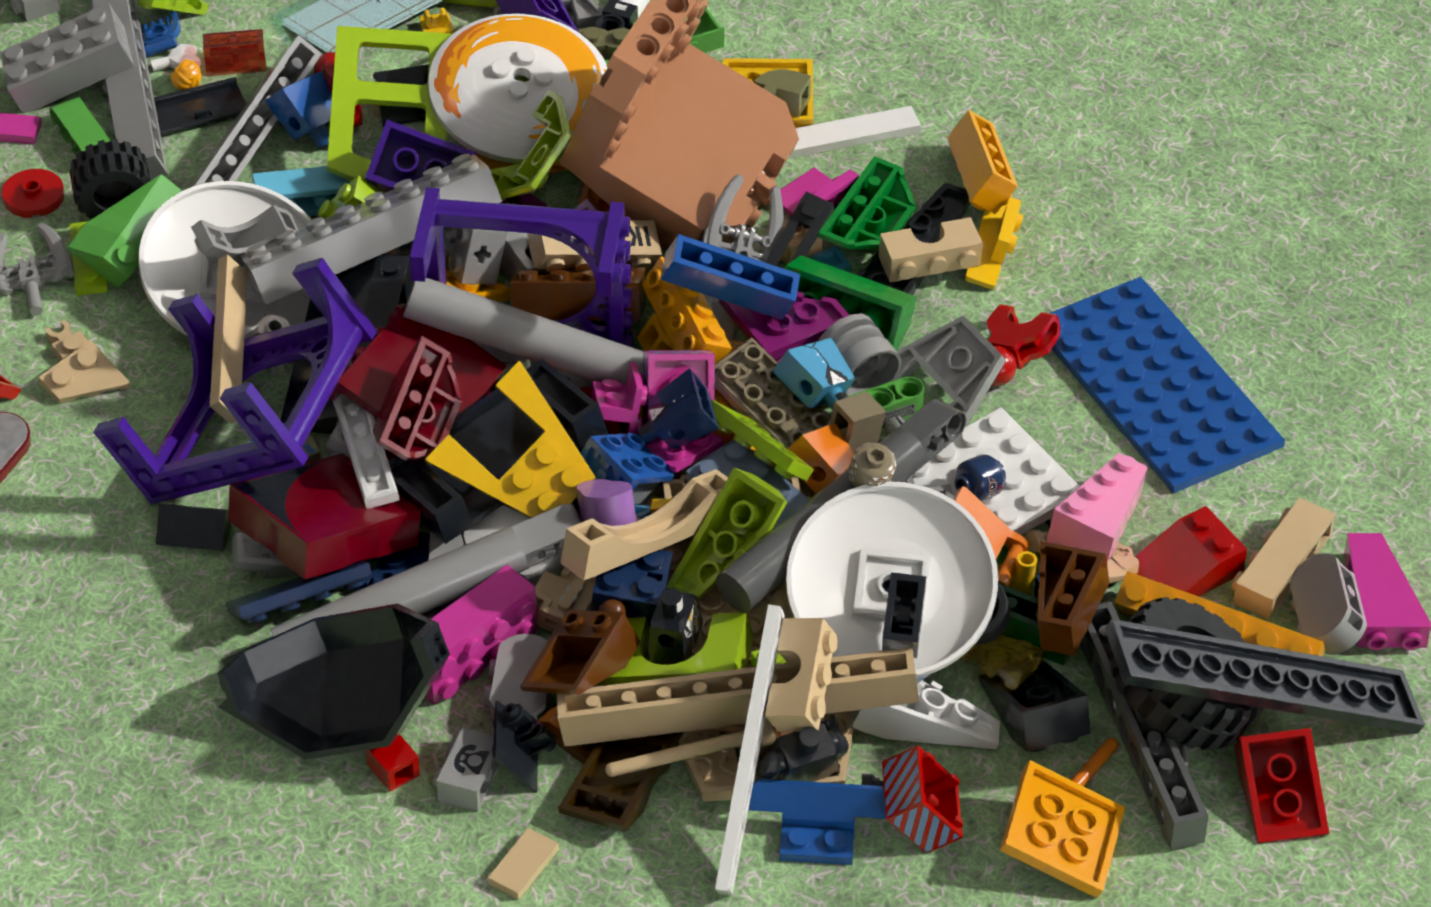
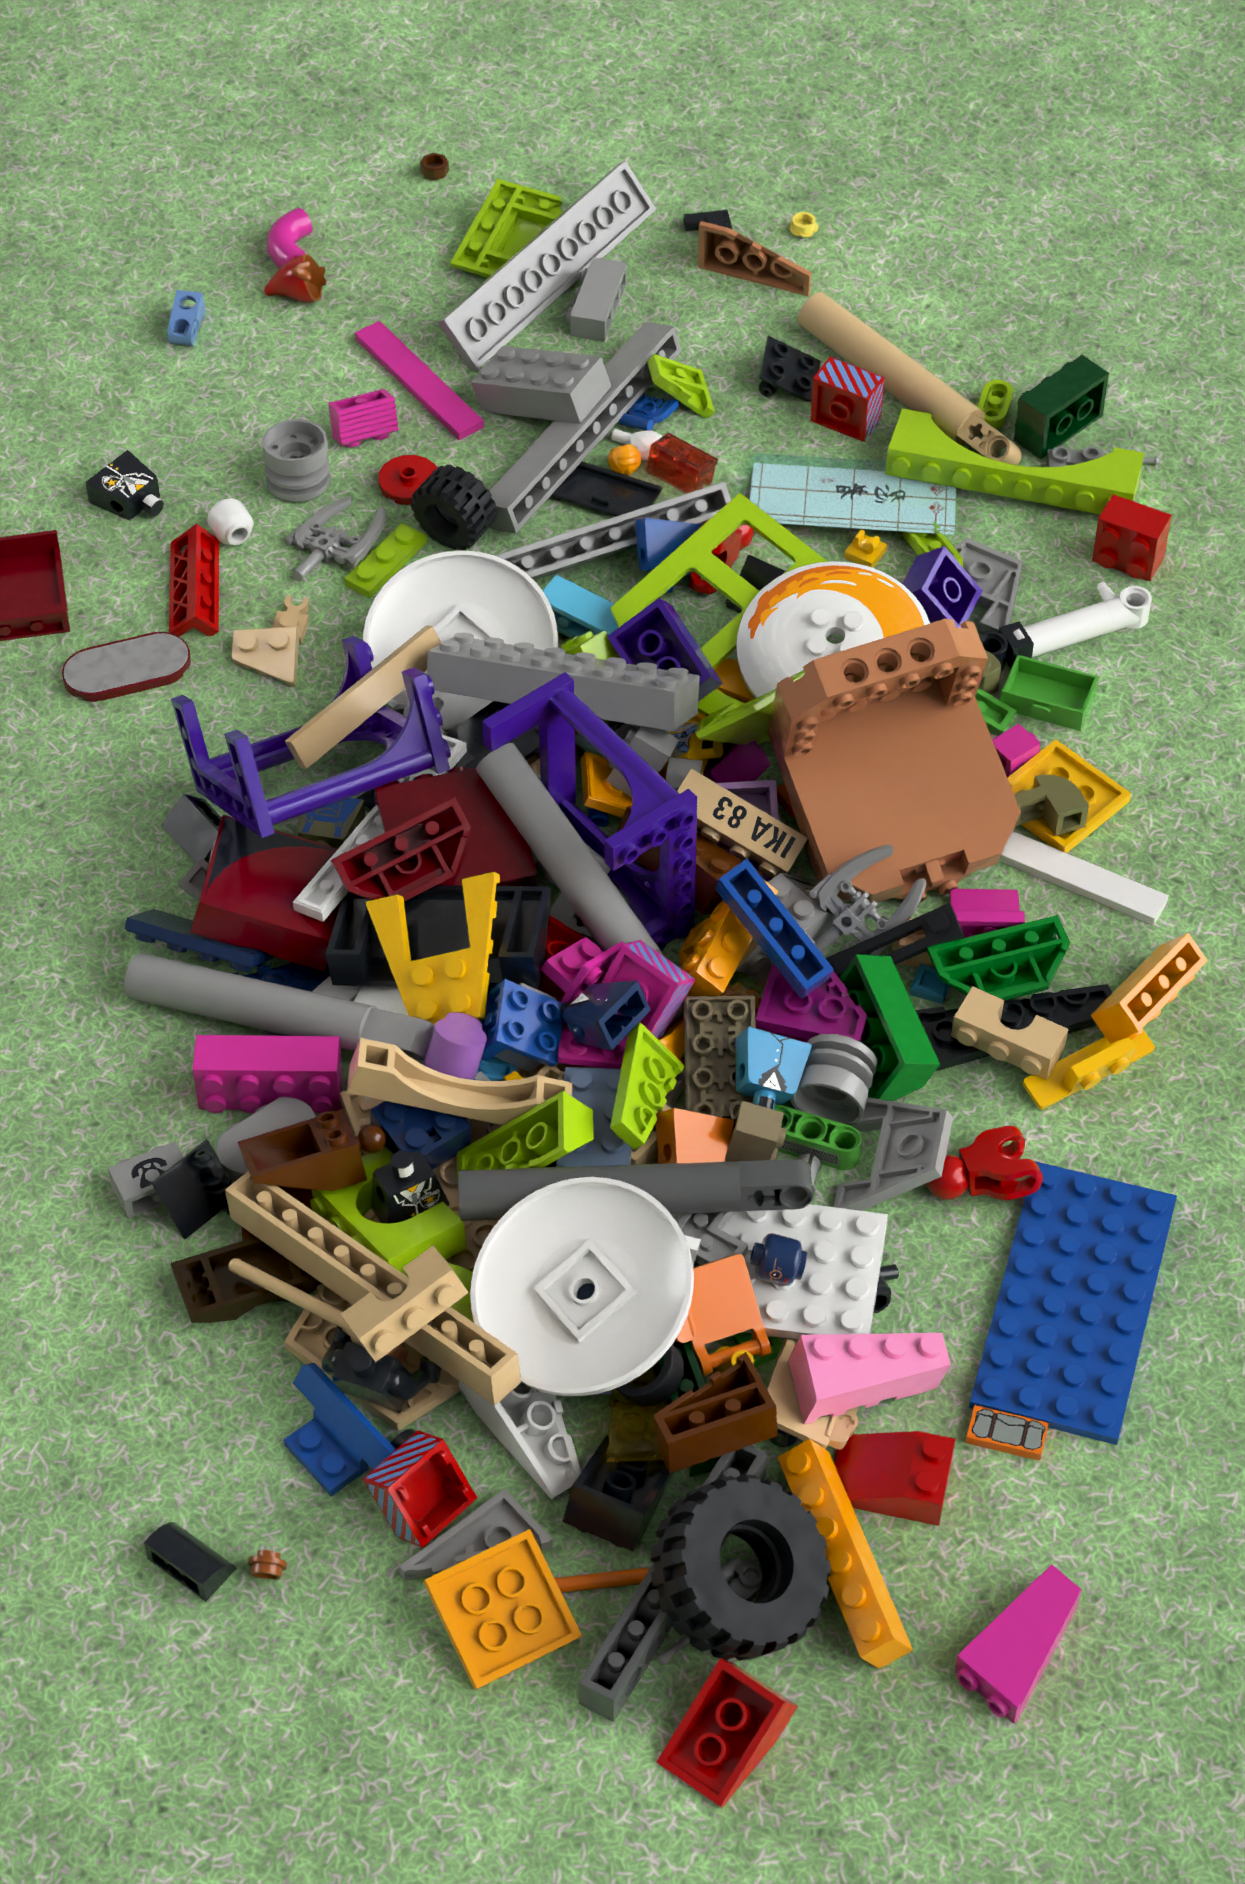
camera: 45 degrees right, 5 degrees up
(77, 124) = (495, 450): bright green beam -> none
(113, 238) = (394, 549): bright green wedge -> none
(234, 241) = (454, 617): light grey arch -> none
(336, 680) = (114, 1025): black panel -> none
(394, 764) = (109, 1126): red brick -> none
(523, 863) = (104, 1286): tan tile -> none
(749, 751) = (312, 1336): white tile -> none
(872, 465) = (658, 1175): dark tan head -> none
(904, 612) = (542, 1321): black brick -> none
(986, 804) = (482, 1529): none -> light grey wing
(1216, 487) = (1007, 1432): none -> tile
(1263, 676) = (782, 1625): black plate -> none
(1269, 571) = (980, 1540): tan brick -> none
(1328, 603) = (955, 1611): light grey brick -> none

